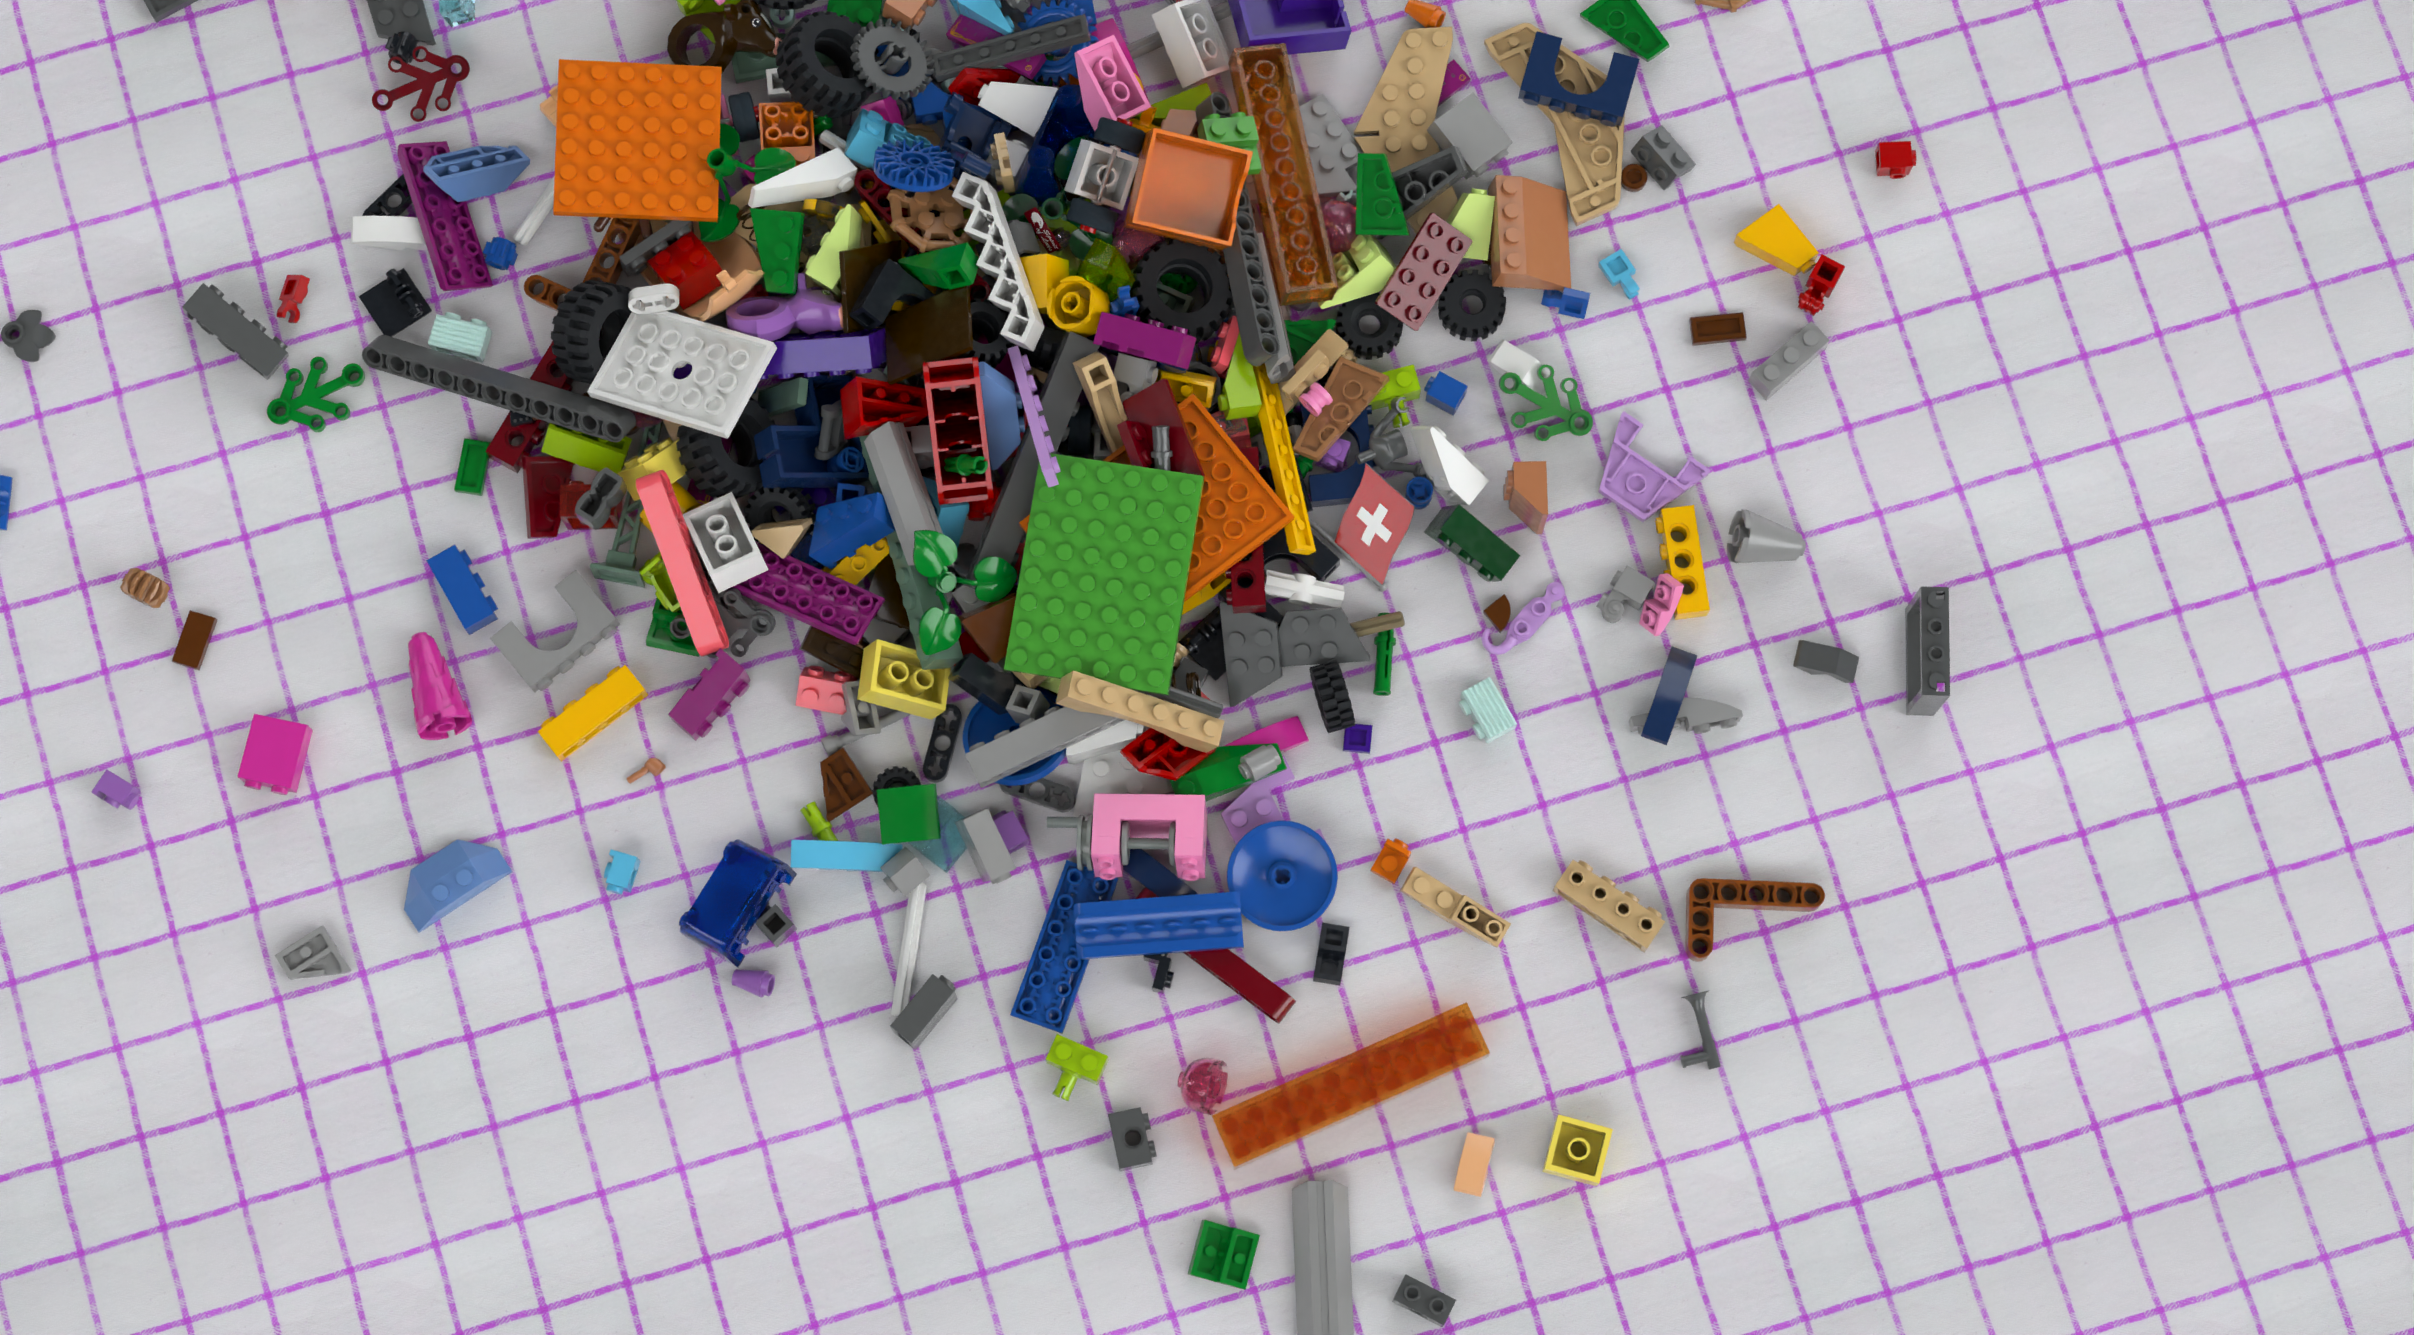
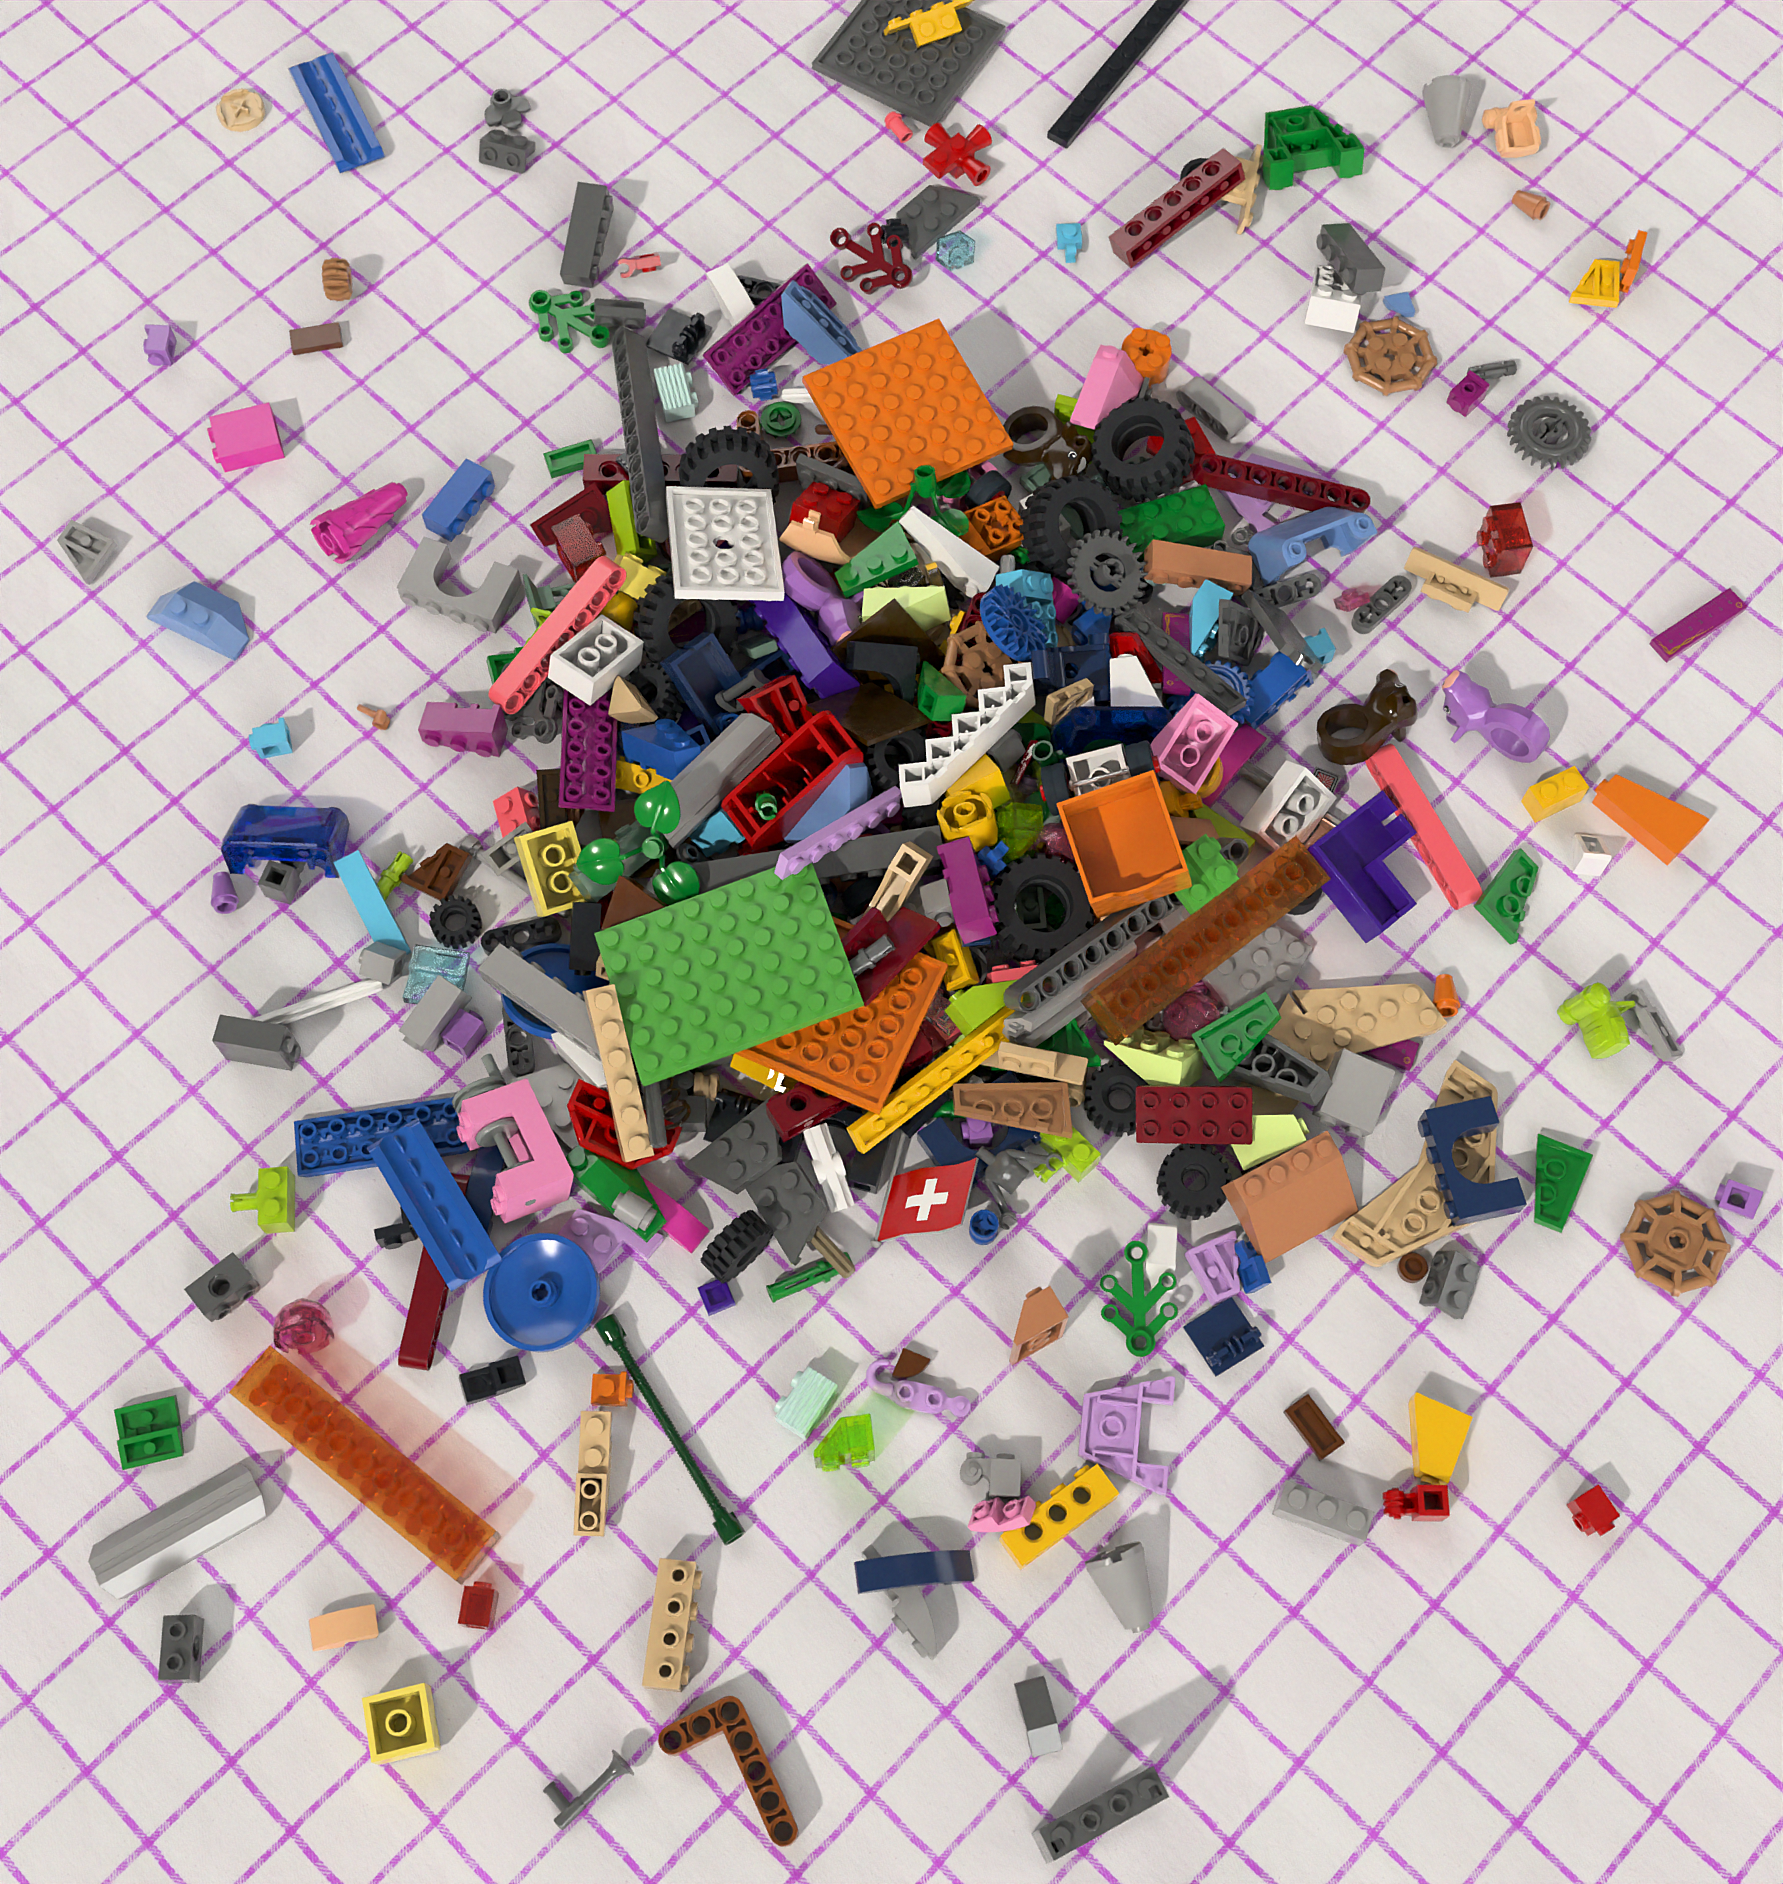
camera: 60 degrees right, 10 degrees down
(79, 359) = (505, 151): none -> dark grey bracket
(340, 342) = (619, 313): none -> dark grey bracket
(538, 248) = (787, 412): none -> green gear
(592, 712) = (402, 647): yellow brick -> none
(596, 504) = (575, 542): dark grey brick -> none
(653, 298) = (777, 494): white beam -> none
(908, 814) = (434, 936): green slope -> none
(1026, 704) = (580, 975): light grey brick -> none
(1315, 399) = (1009, 1077): bright pink wheel -> none
(1445, 392) = (1094, 1201): blue brick -> none
(1447, 467) = (1013, 1242): white slope -> none
(1472, 542) = (960, 1302): dark green wedge -> none
(1514, 1049) = (478, 1606): none -> clear red brick
(1539, 692) = (847, 1443): none -> clear neon green slope
(1551, 823) = (725, 1523): none -> dark green hose
(1552, 328) = (1216, 1267): none -> lavender wing
(1609, 355) = (1224, 1336): none -> dark blue hinge
(1619, 270) = (1312, 1301): medium azure plate -> none

